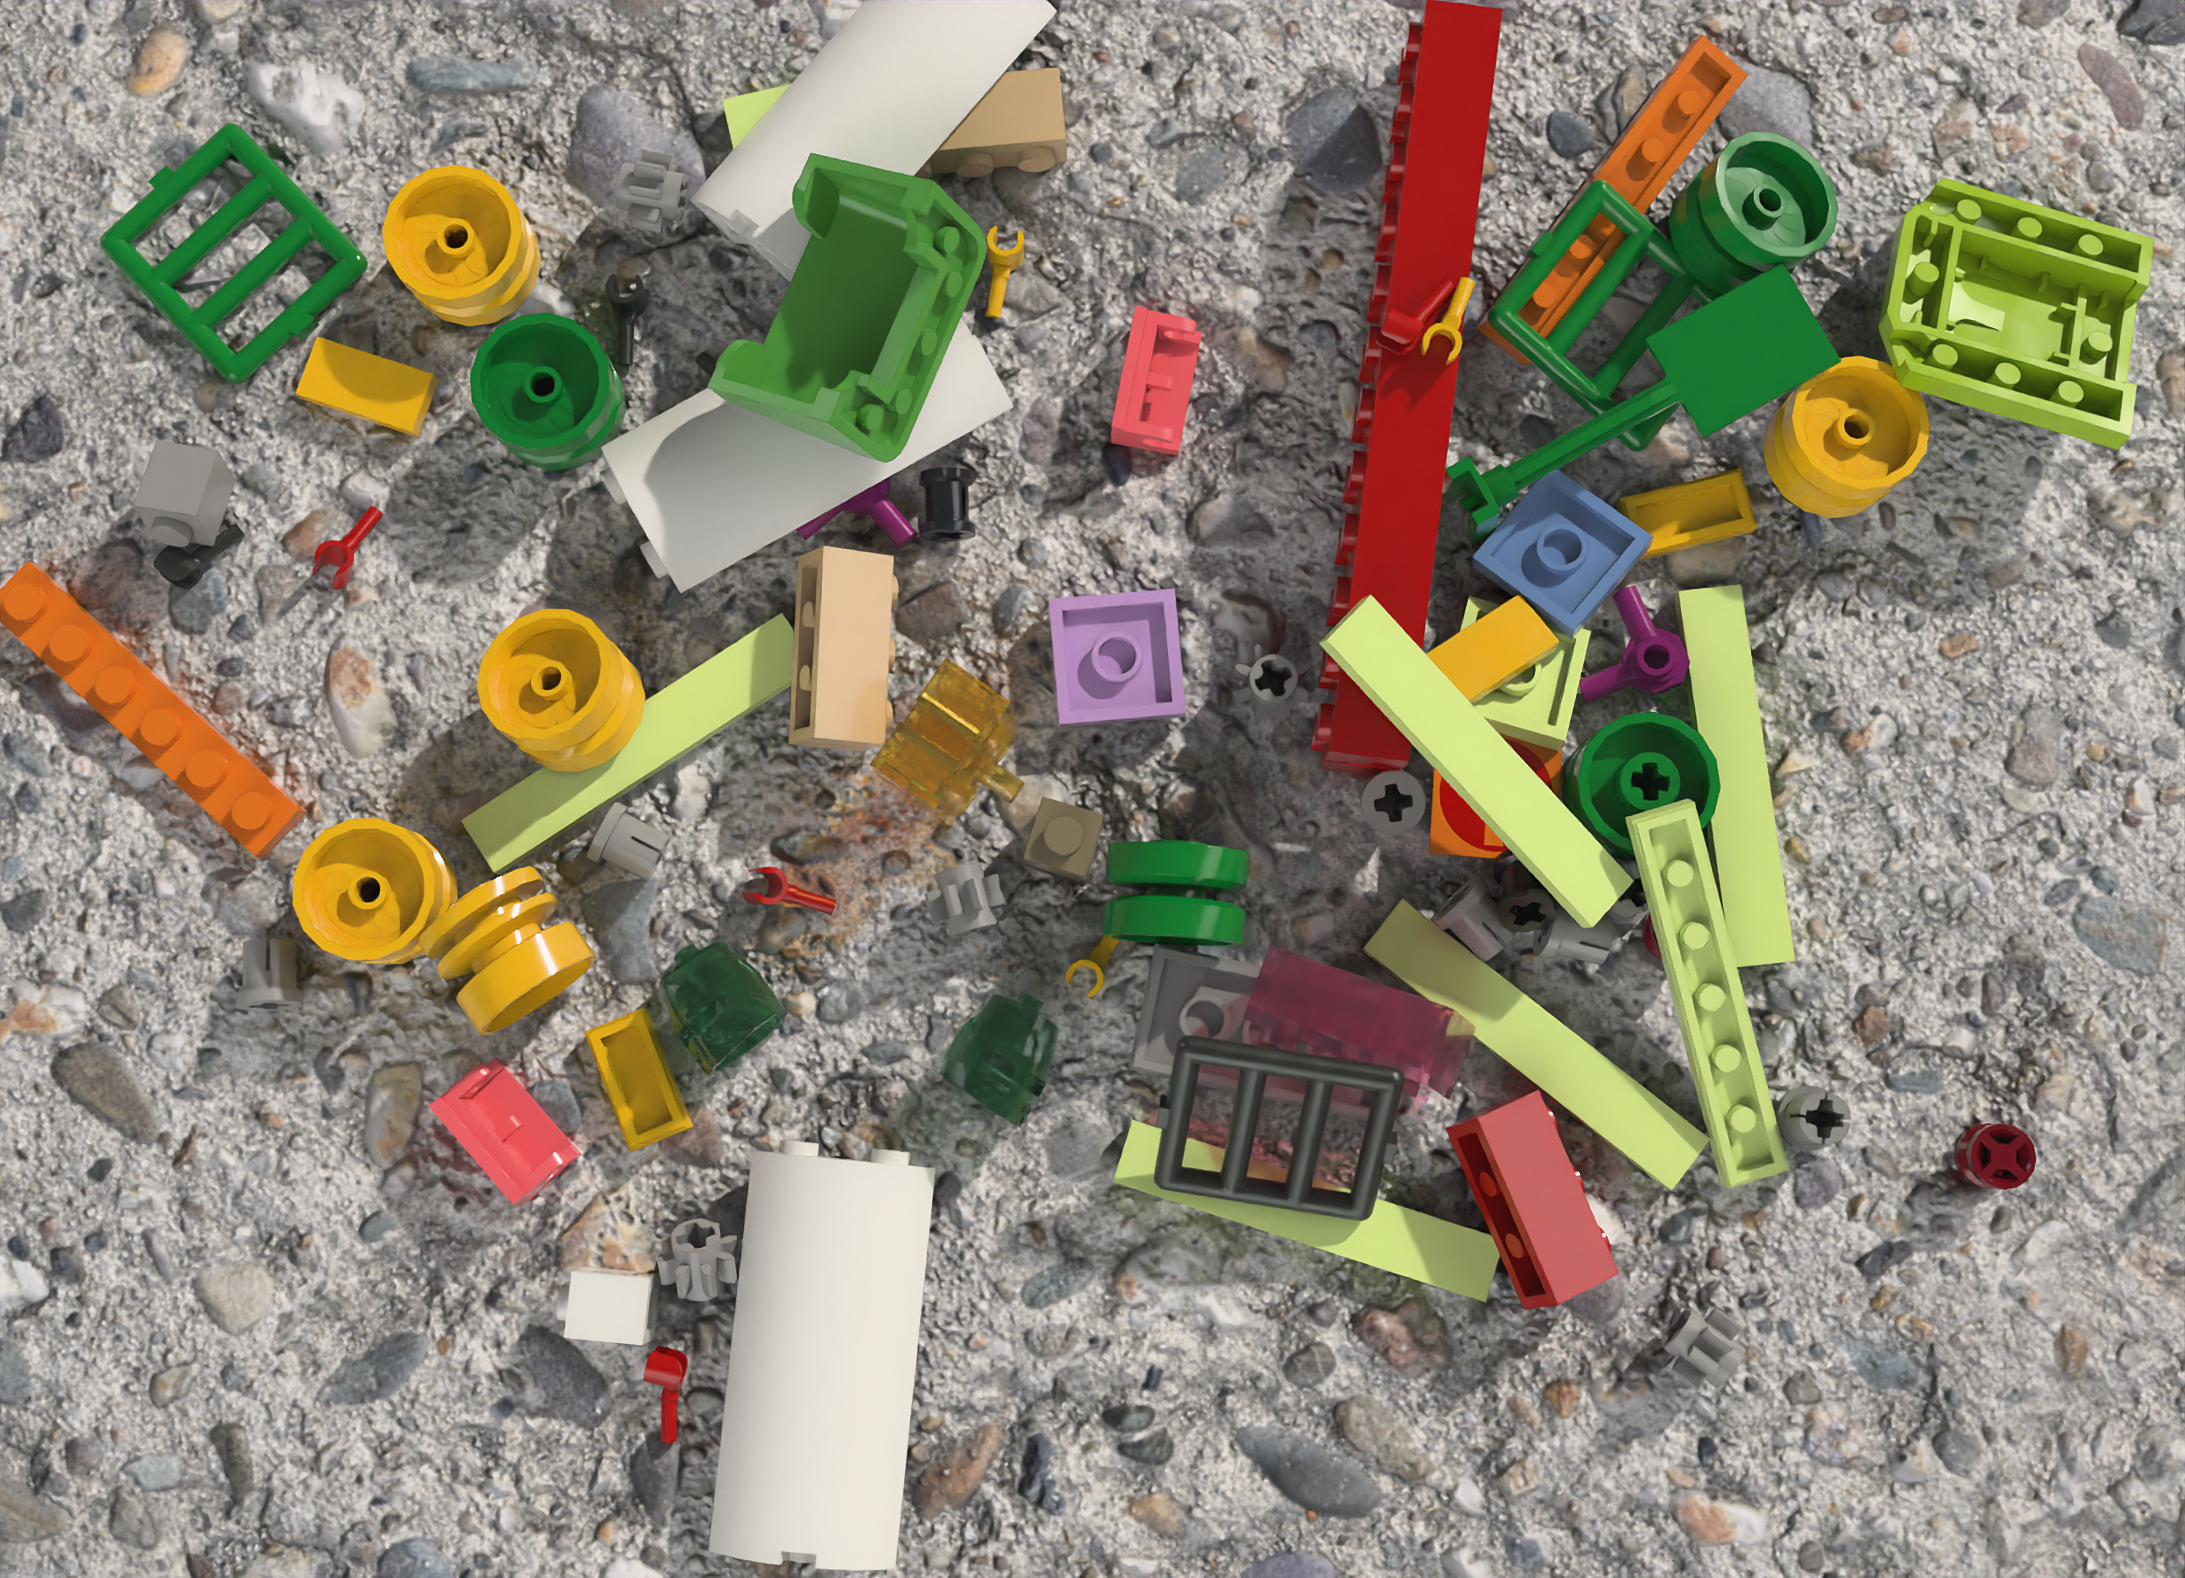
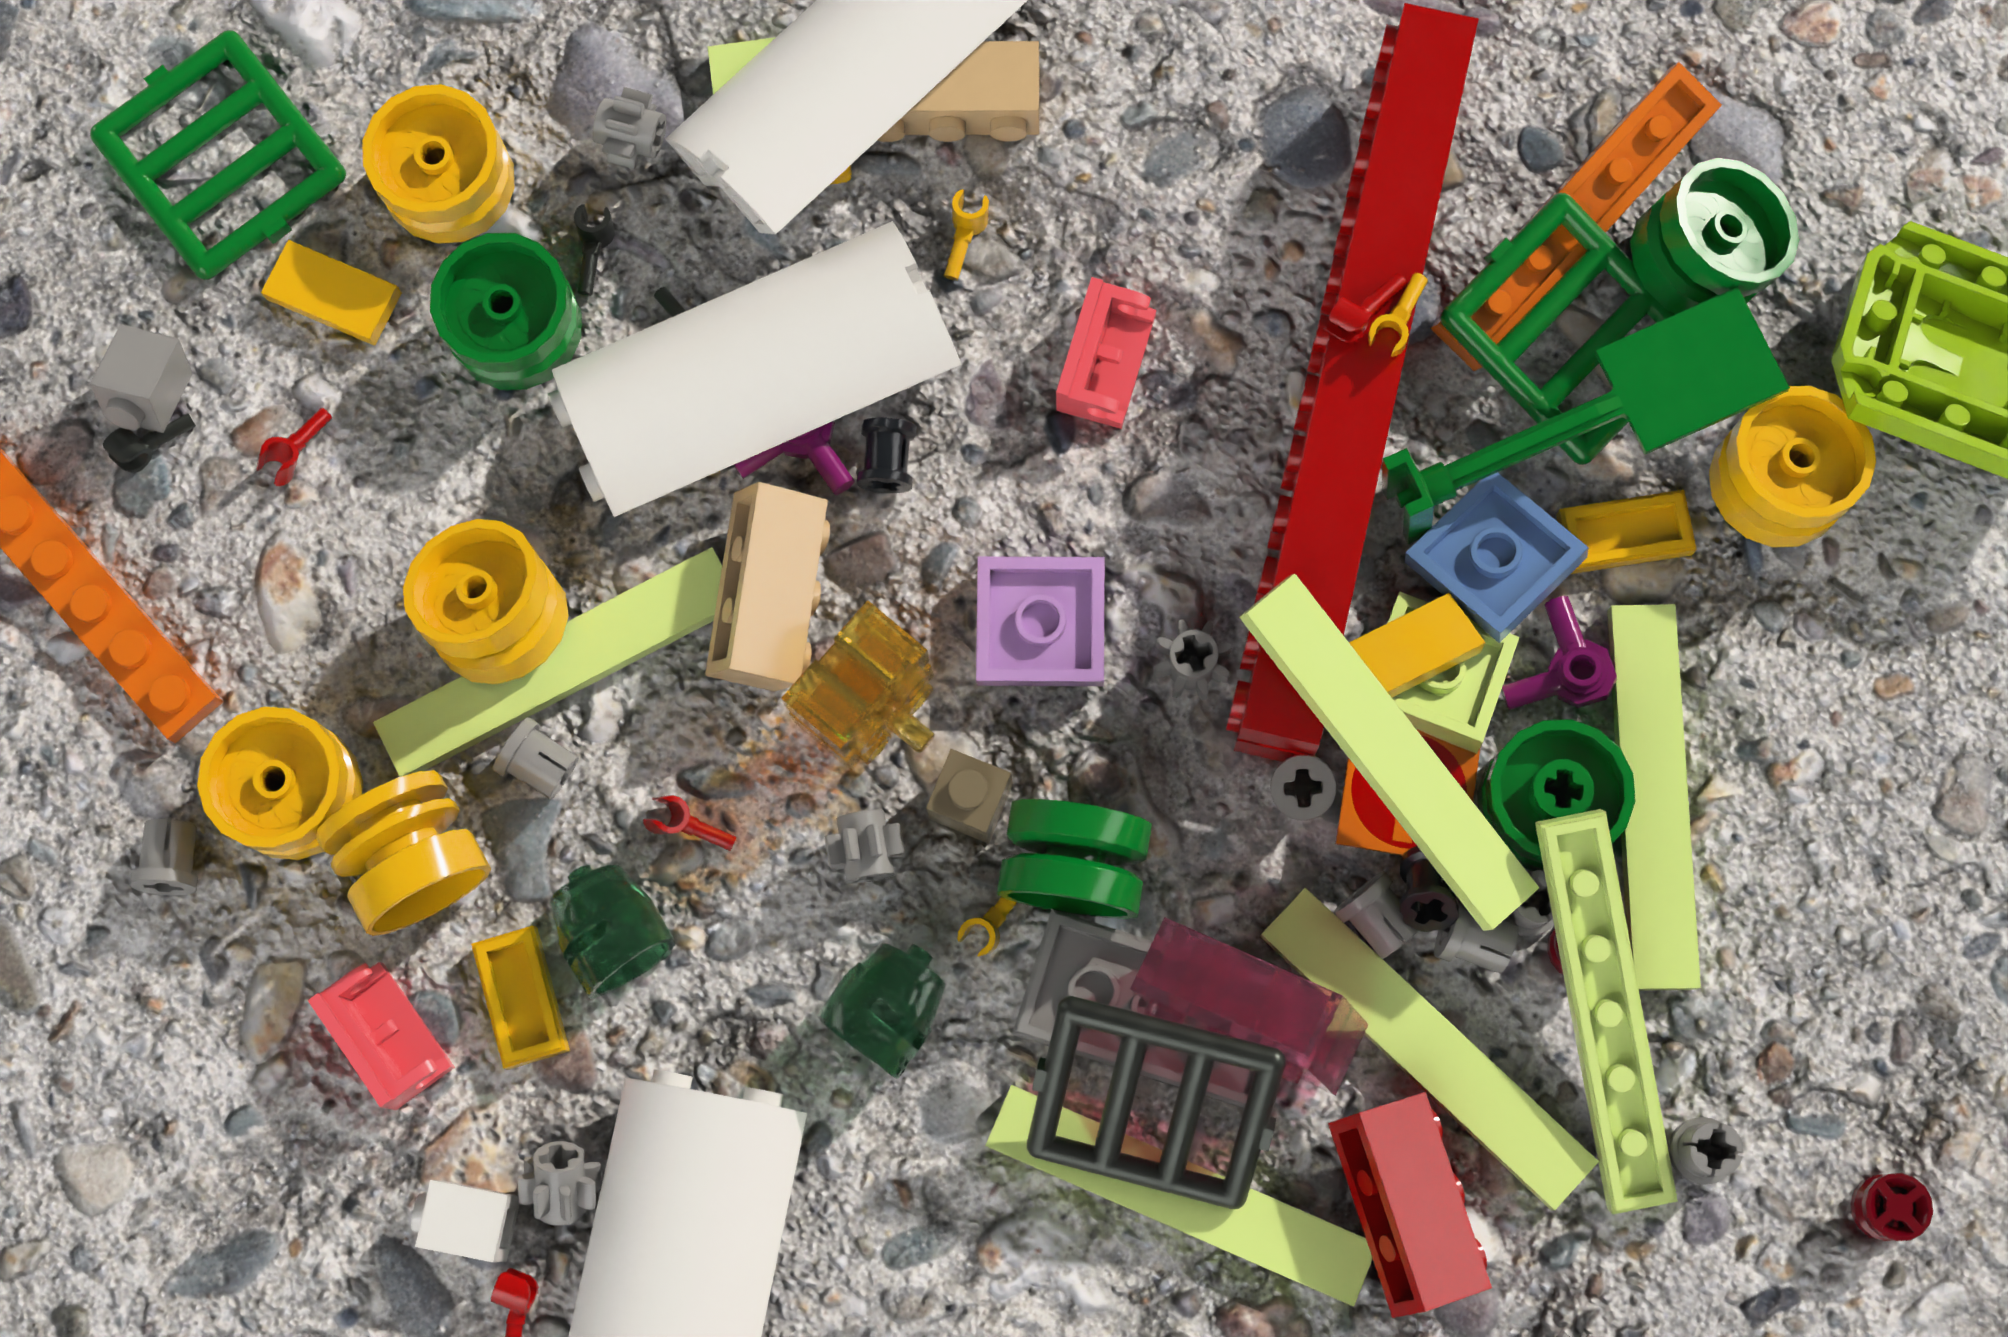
camera: 10 degrees right, 5 degrees down
(863, 310) = (821, 256): bright green windscreen -> none

